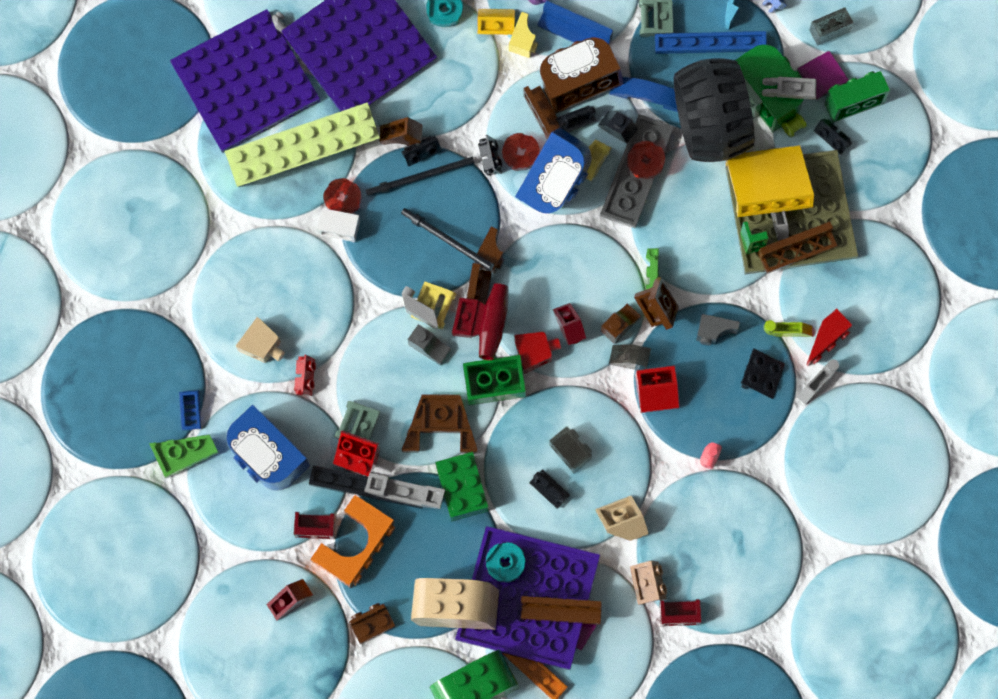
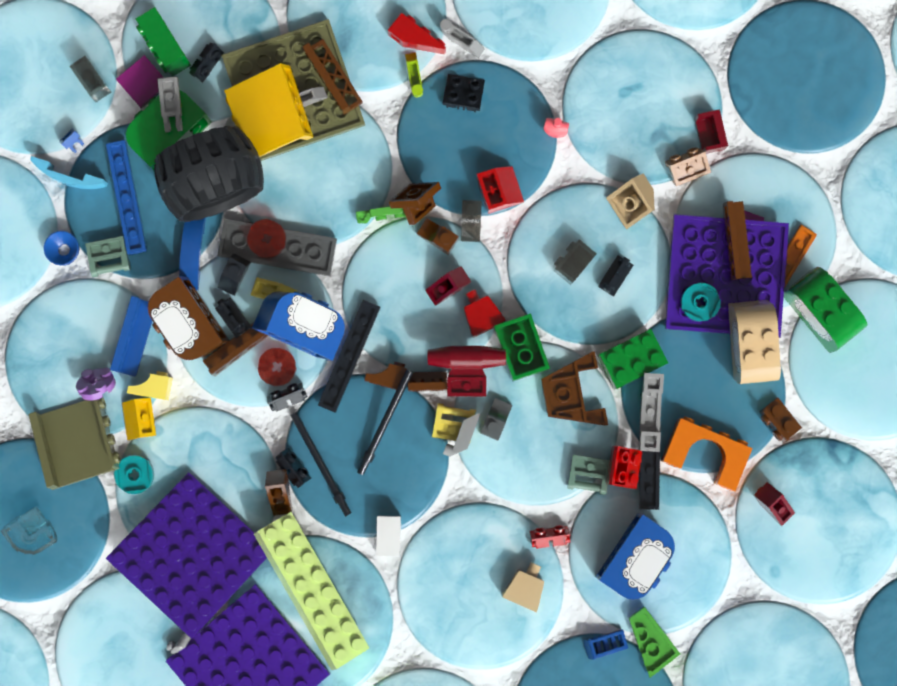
camera: 105 degrees left, 10 degrees up
(314, 526) = (698, 495): dark red panel -> none
(346, 187) = (347, 533): clear red plate -> none
(518, 219) = (349, 356): none -> black plate
(714, 327) = (428, 148): dark grey arch -> none
(753, 242) = (336, 122): green panel -> none
(794, 125) = (202, 100): lime bush -> none

